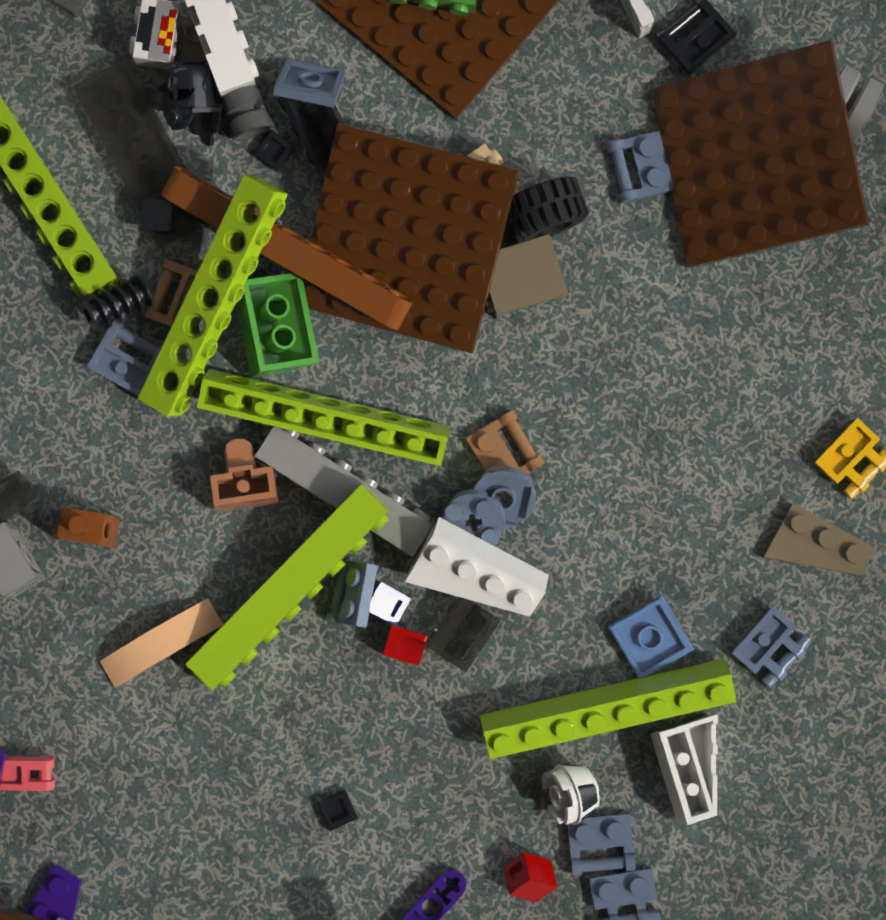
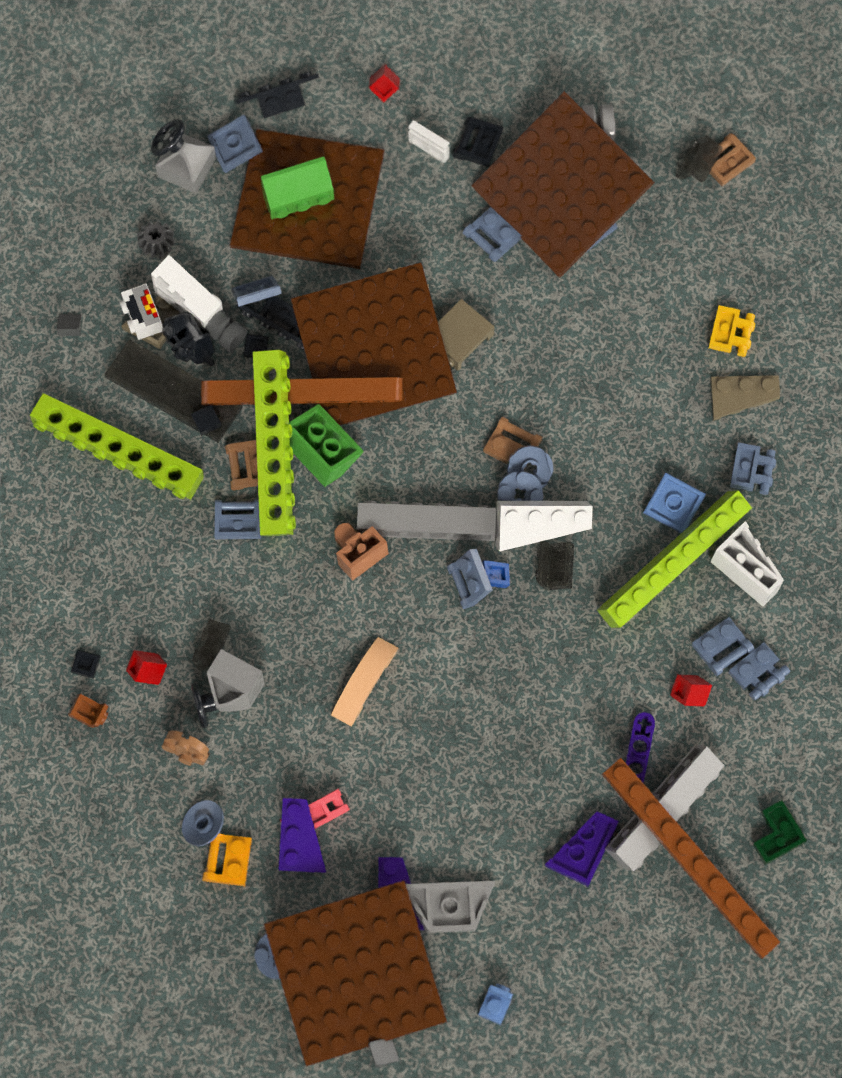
camera: 30 degrees left, 15 degrees down
(87, 527) = (272, 633): dark orange torso -> none
(115, 301) = (211, 485): black piece -> none
(288, 587) = (427, 594): lime brick -> none
(323, 417) = (386, 482): lime brick -> none
(337, 810) = (542, 720): black tile -> none
(405, 645) = (522, 593): red panel -> none
(547, 208) = (451, 282): black tyre -> none
(572, 793) = (684, 621): white cone -> none

